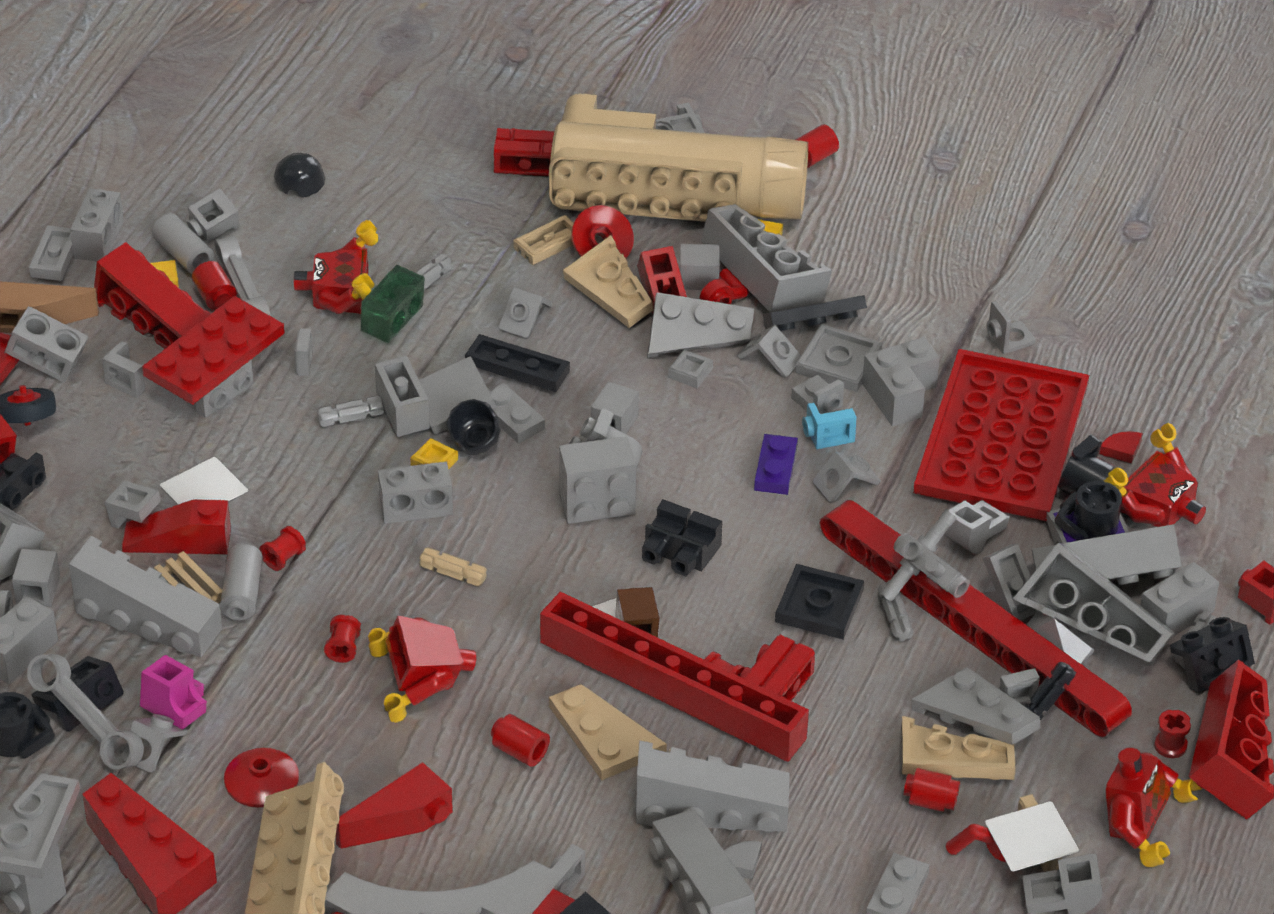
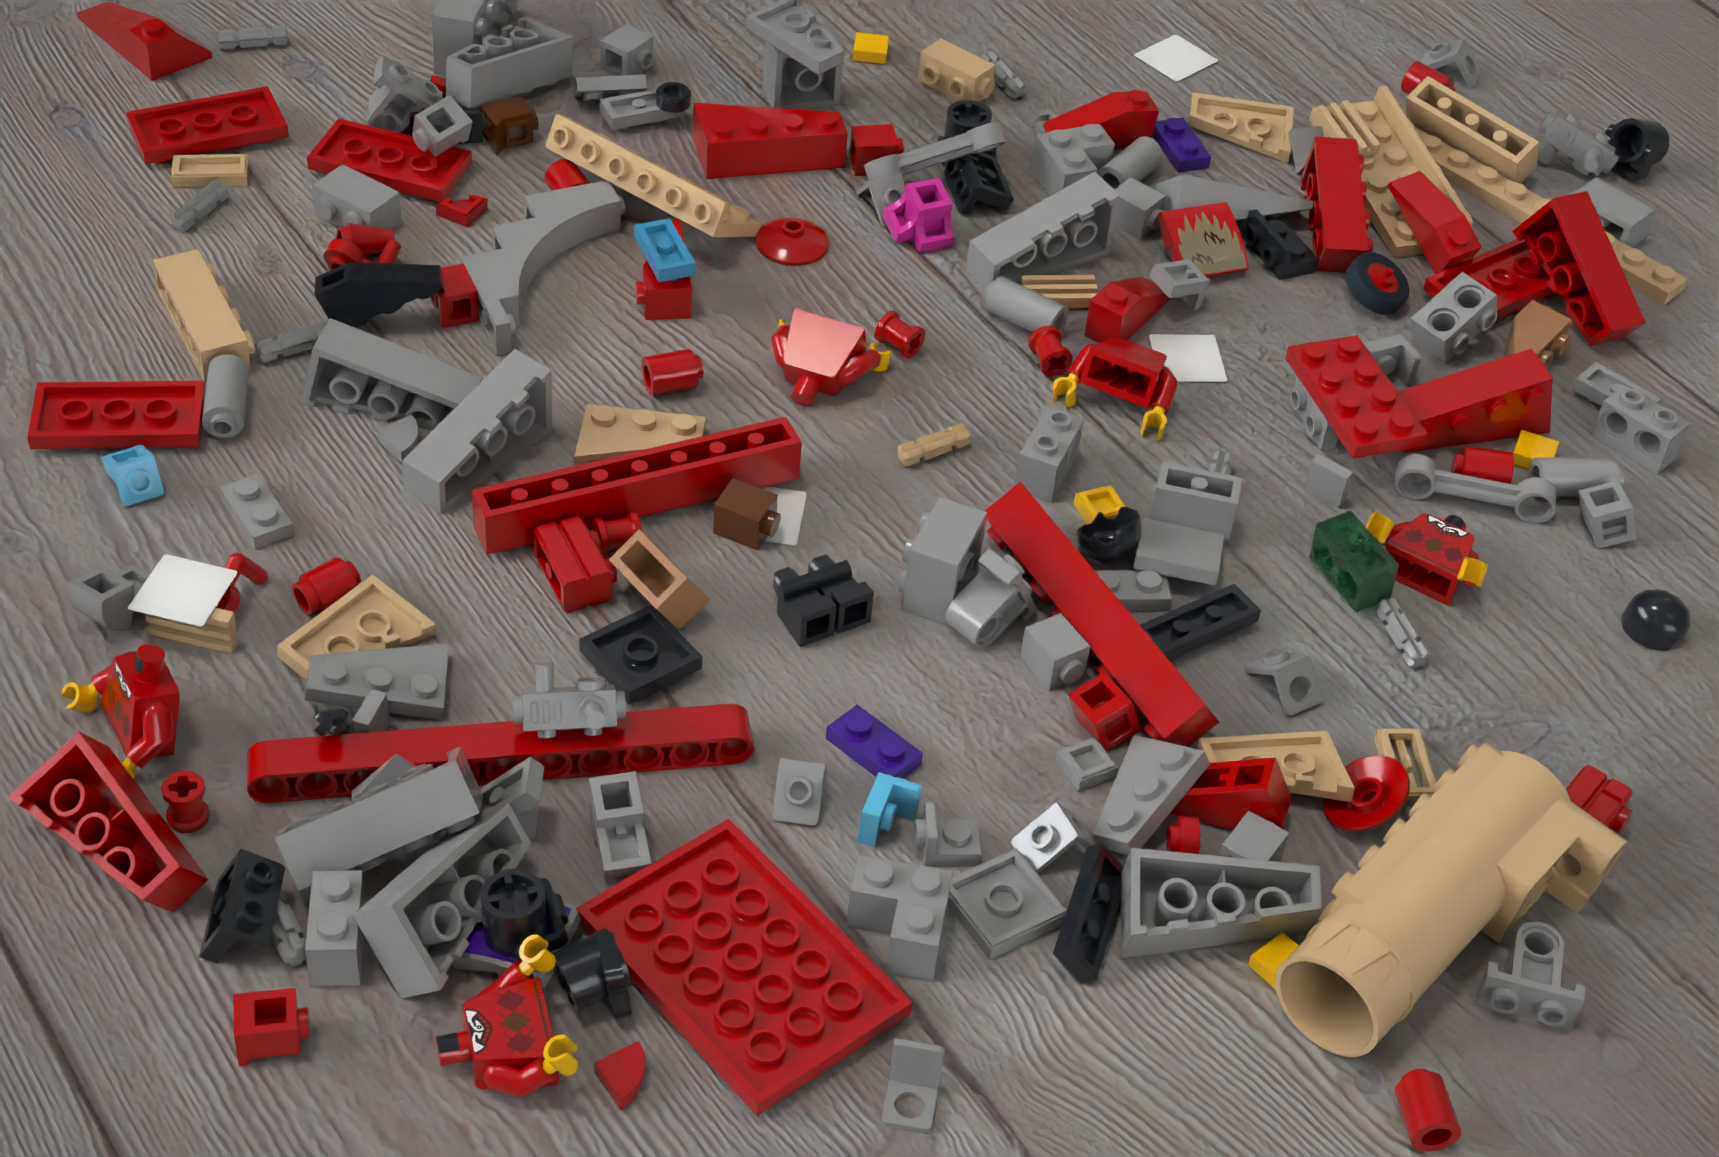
camera: 120 degrees right, 0 degrees up
(56, 515) = (1206, 237): none -> slope
(89, 766) = (871, 143): none -> red brick
(283, 489) = (1125, 372): none -> red torso
(403, 787) = (664, 250): none -> dark azure plate
(564, 402) = (1100, 618): none -> red brick
(647, 366) = (1105, 711): none -> red brick
(755, 613) = (659, 579): none -> medium nougat piece

